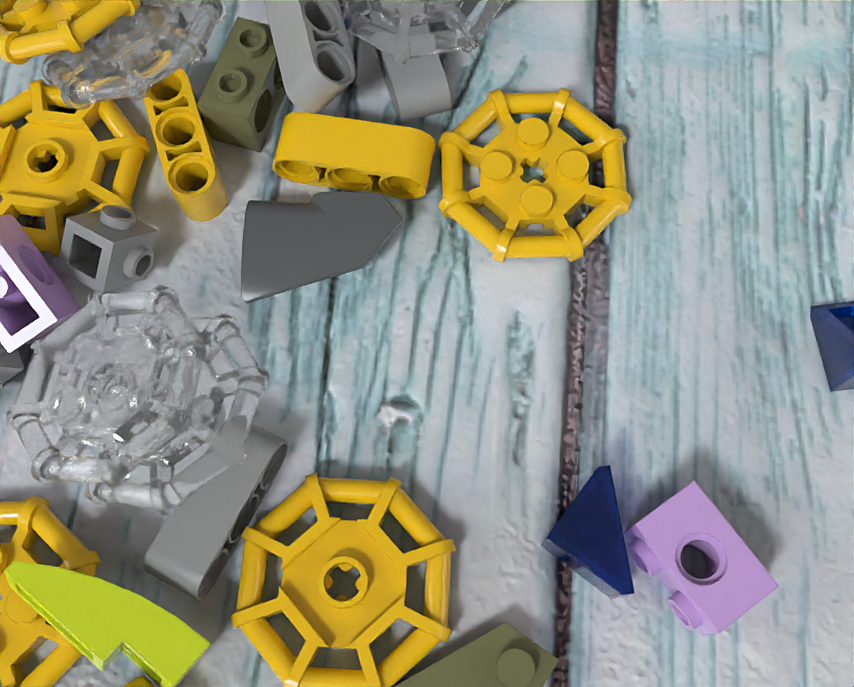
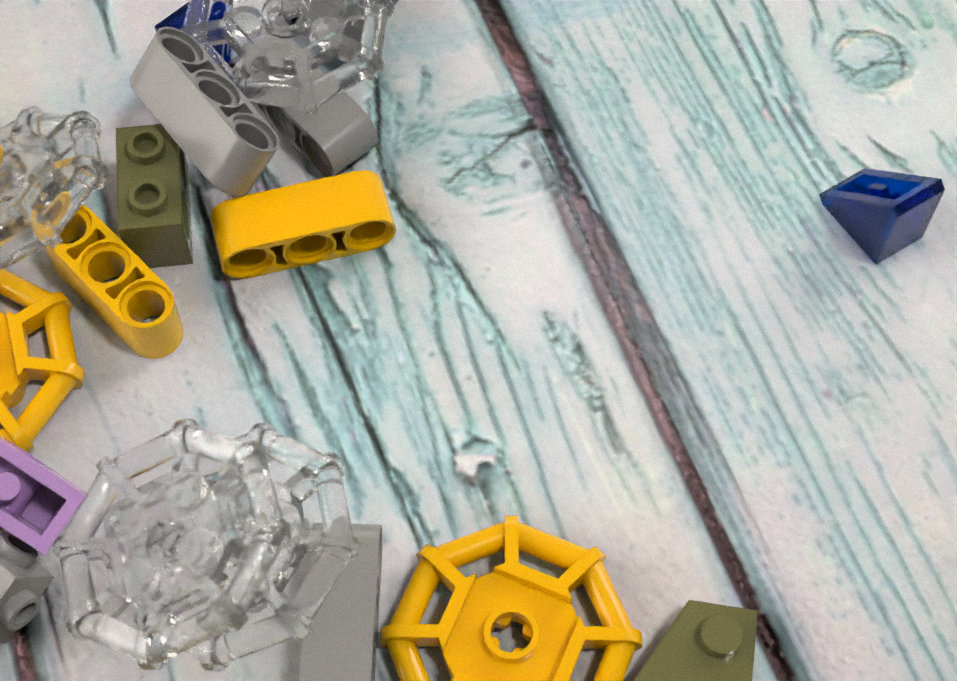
camera: 30 degrees left, 10 degrees down
(107, 248) = (73, 424): light grey brick -> none
(311, 241) = (304, 321): dark grey panel -> none
(540, 146) = (493, 145): yellow plate -> none
(592, 537) = (731, 484): clear blue slope -> none
(732, 576) = (872, 453): lavender brick -> none

